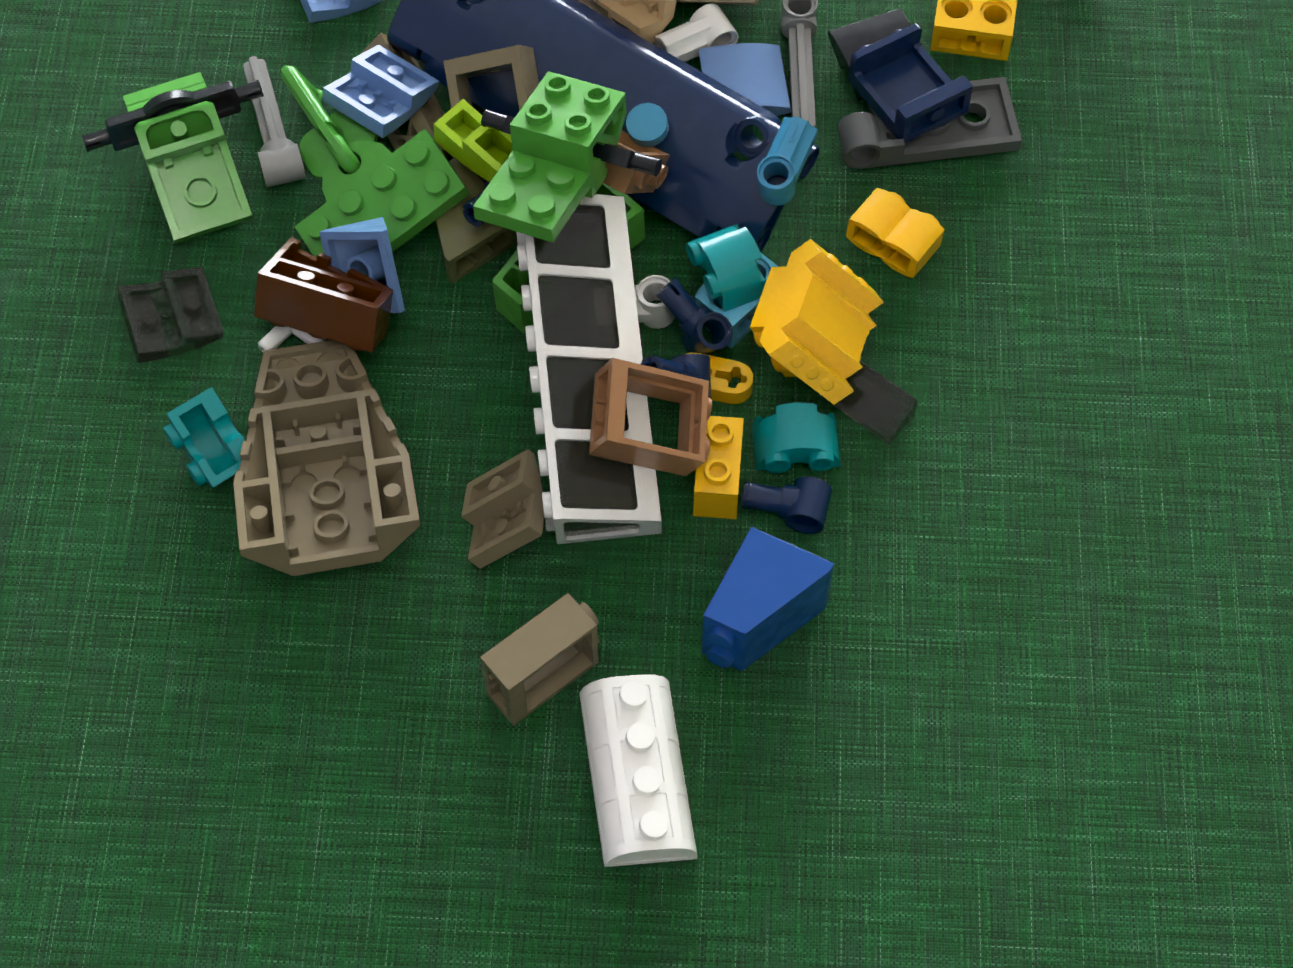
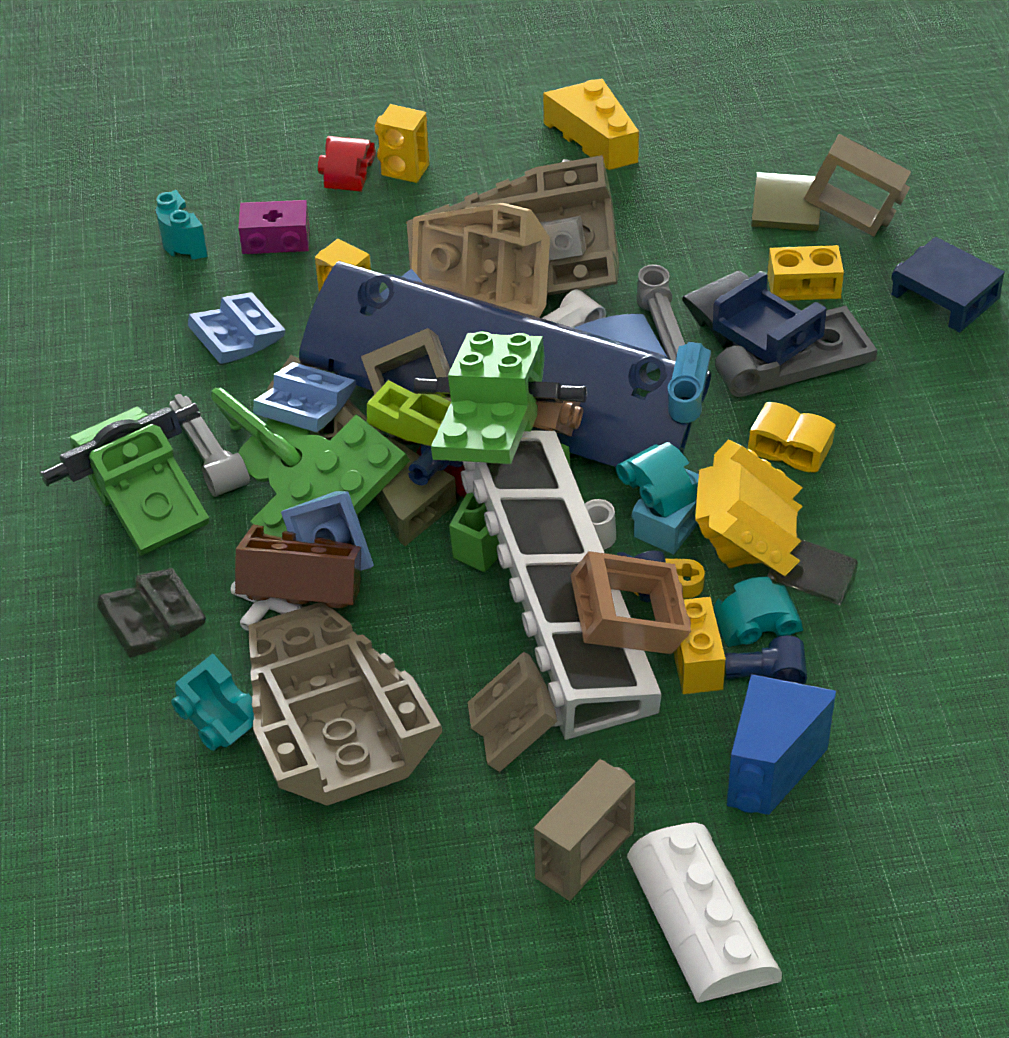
camera: 10 degrees left, 15 degrees down
(647, 124) = (559, 371): dark azure tile -> none
(692, 319) = (641, 531): dark blue pin -> none
(1131, 66) = (951, 280): none -> dark blue panel

